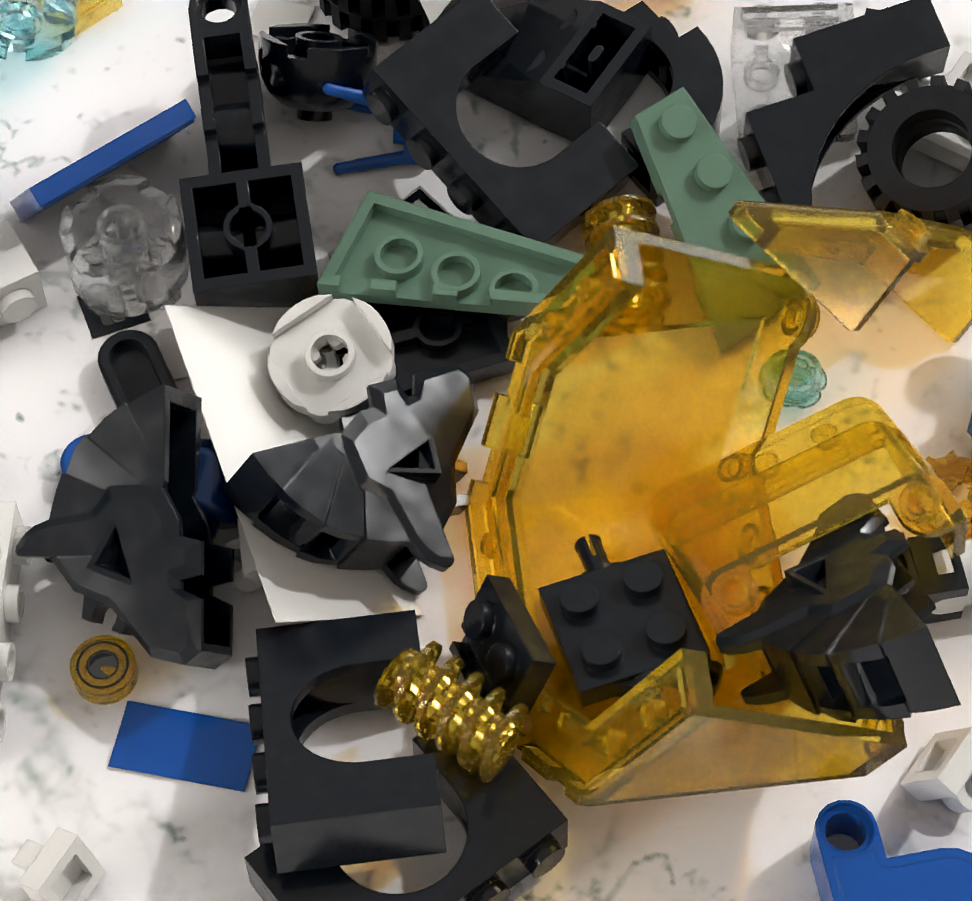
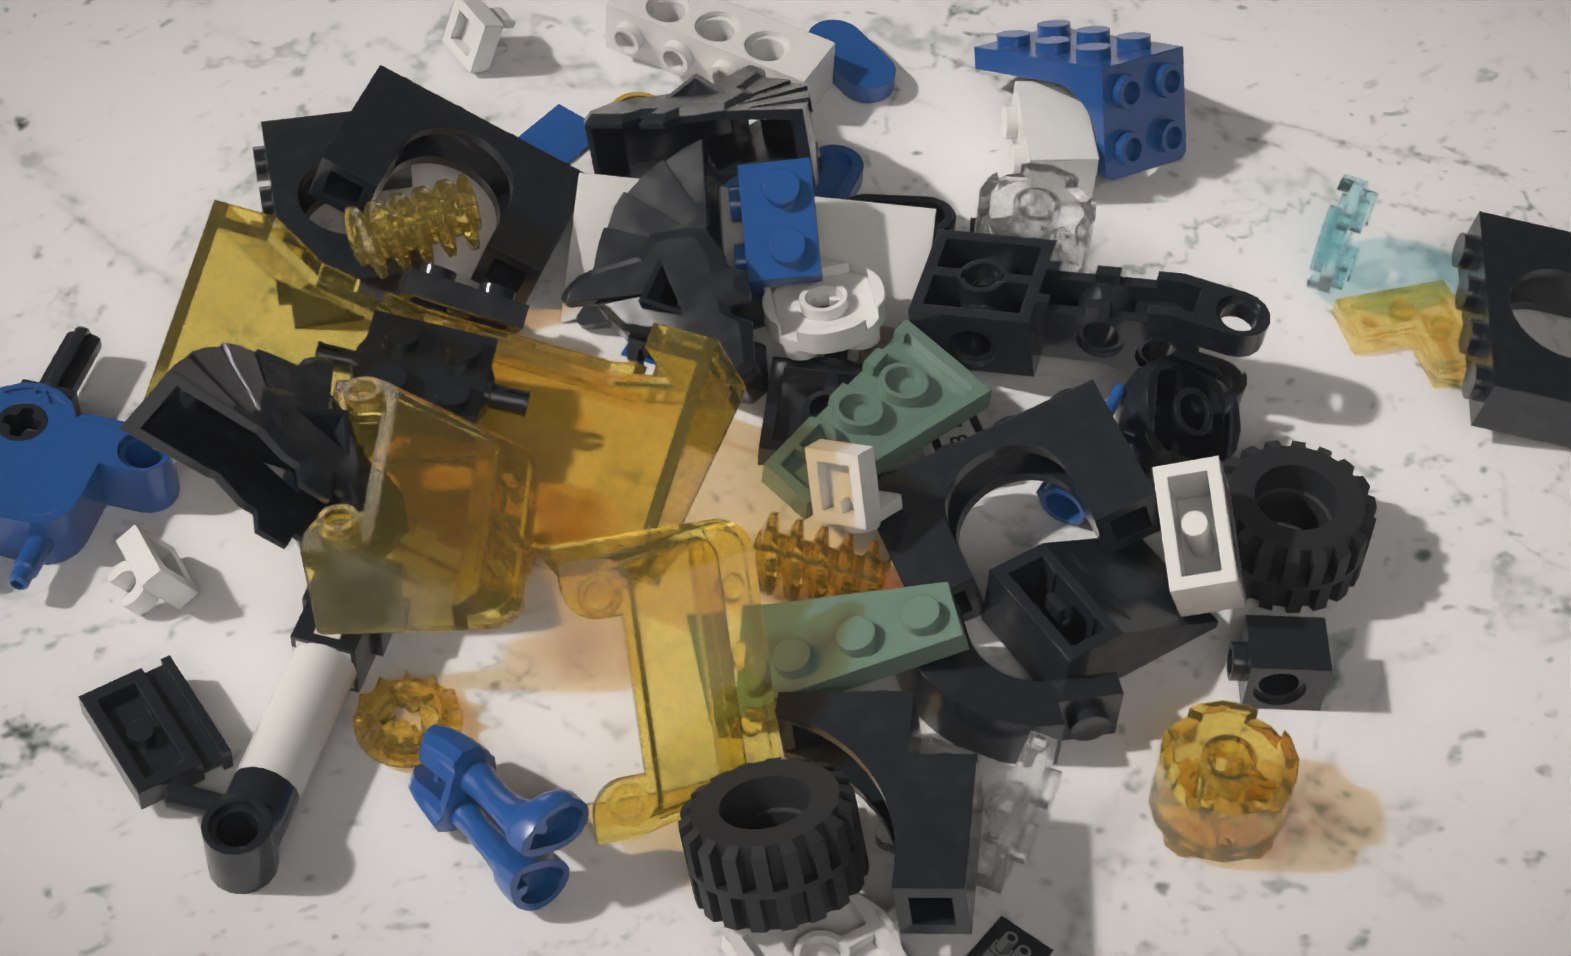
camera: 110 degrees right, 10 degrees down
(103, 160) = (1123, 216): blue tile -> none
(273, 404) = (778, 223): none -> blue bracket
(575, 215) = (846, 486): none -> white bracket
(812, 379) = (603, 641): clear light blue plate -> none

